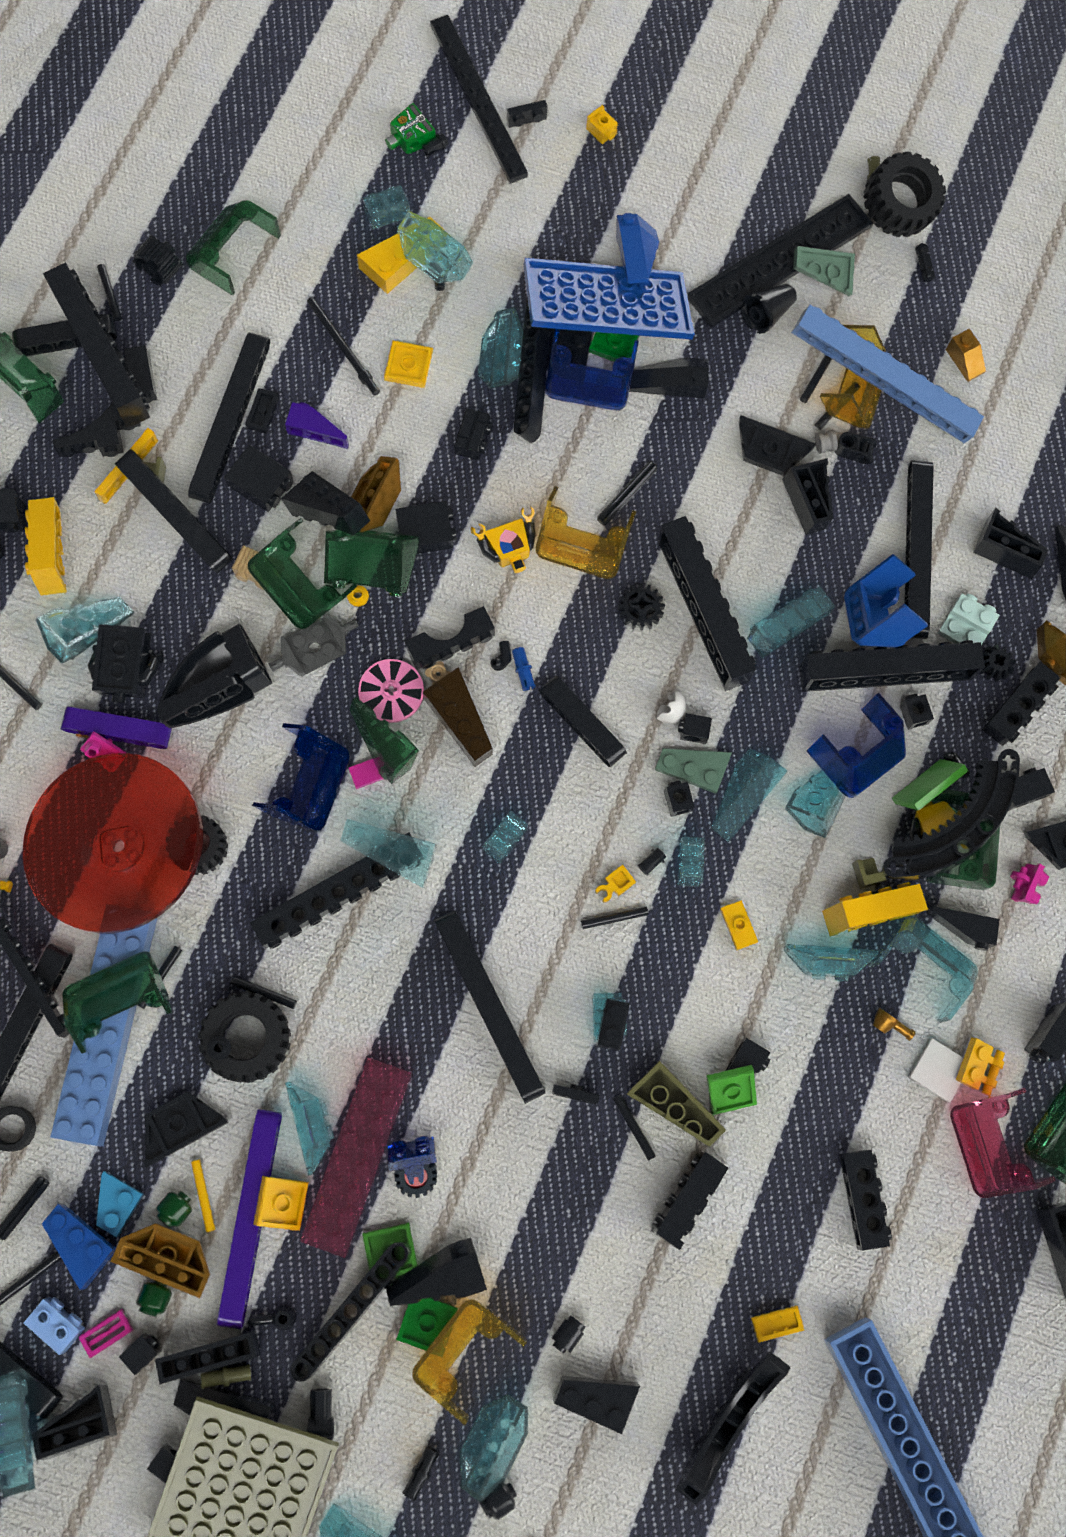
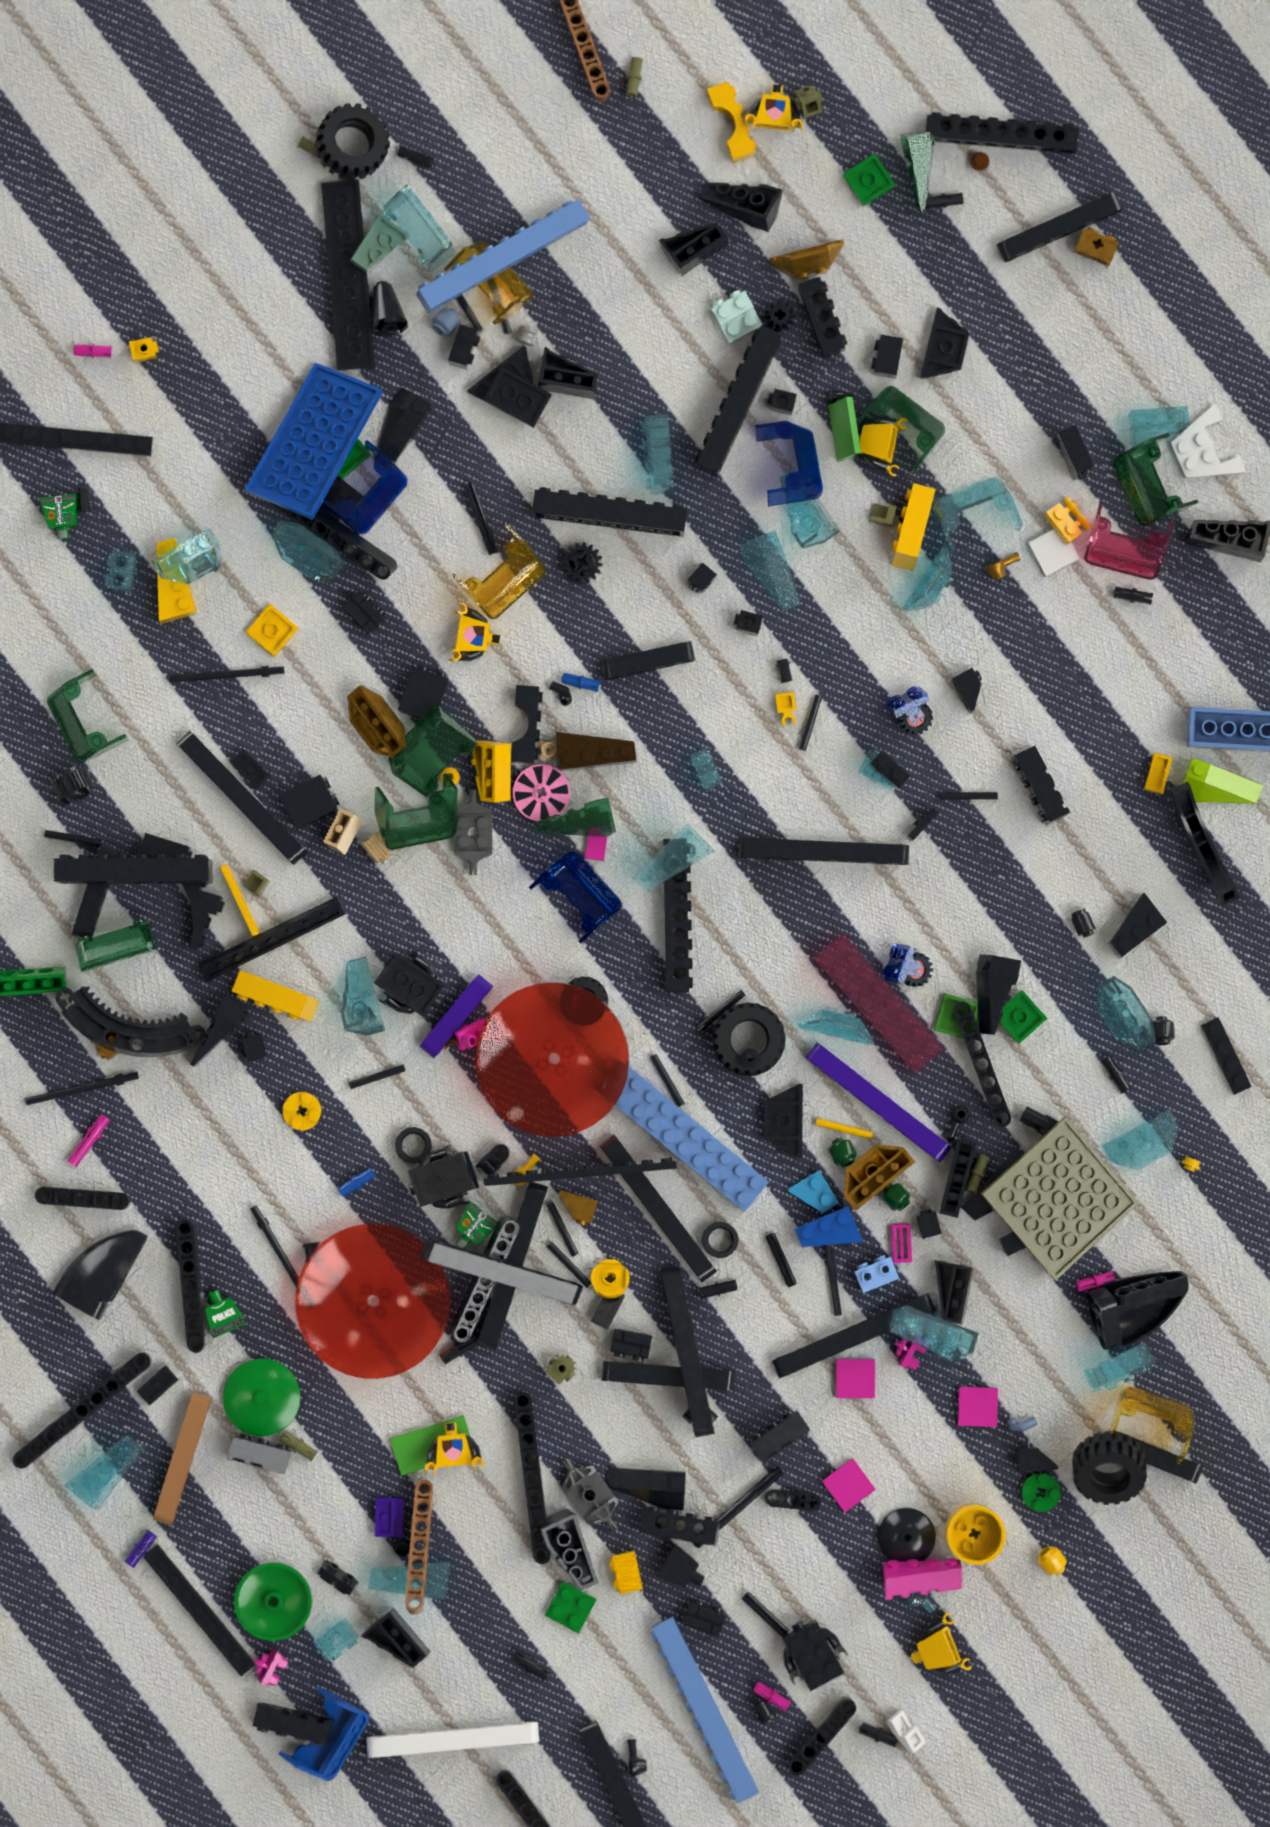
camera: 55 degrees left, 10 degrees up
(103, 513) = (271, 939): none -> black plate
(111, 992) = (665, 1112): clear green windscreen -> none
(173, 511) = (305, 882): black beam -> none
(213, 679) = (459, 922): black panel -> none
(245, 521) = (342, 831): none -> tan brick
(280, 1203) = (881, 1074): yellow tile -> none
(310, 424) = (283, 737): dark purple slope -> none
(325, 503) = (363, 763): black wedge -> none
(385, 630) = (493, 770): none -> yellow wedge
(432, 1369) = (1034, 986): clear yellow windscreen -> none
(527, 113) = (100, 400): black plate -> none
(575, 86) = (92, 350): none -> dark pink axle
(637, 246) = (276, 387): blue wedge -> none
(673, 1101) = (966, 757): olive wedge -> none
(674, 710) = (678, 587): white hair -> none
(688, 1014) = (911, 710): none -> clear blue plate
(691, 861) = (801, 642): clear light blue brick -> none
(696, 767) = (730, 595): sand green wing -> none
(731, 1089) = (982, 710): bright green tile -> none
(739, 925) = (867, 634): yellow plate -> none
(763, 460) = (517, 397): none -> black plate
(779, 390) = (463, 347): none -> black brick
(792, 364) = (446, 321): none -> sand blue head
(805, 1402) = (1218, 785): none -> lime wedge
(857, 447) = (548, 312): black piece -> none
(866, 284) = (419, 227): none -> clear light blue windscreen
(869, 602) = (686, 391): blue windscreen -> none
(881, 1234) = (1081, 656): black brick -> none
(919, 540) = (655, 317): black beam -> none
(947, 1183) = (1133, 595): none -> black pin
(967, 354) = (517, 175): pearl gold slope -> none
(969, 927) = (966, 464): black slope -> none
(986, 803) = (887, 399): black gear -> none
(1027, 881) = (956, 401): dark pink hips -> none

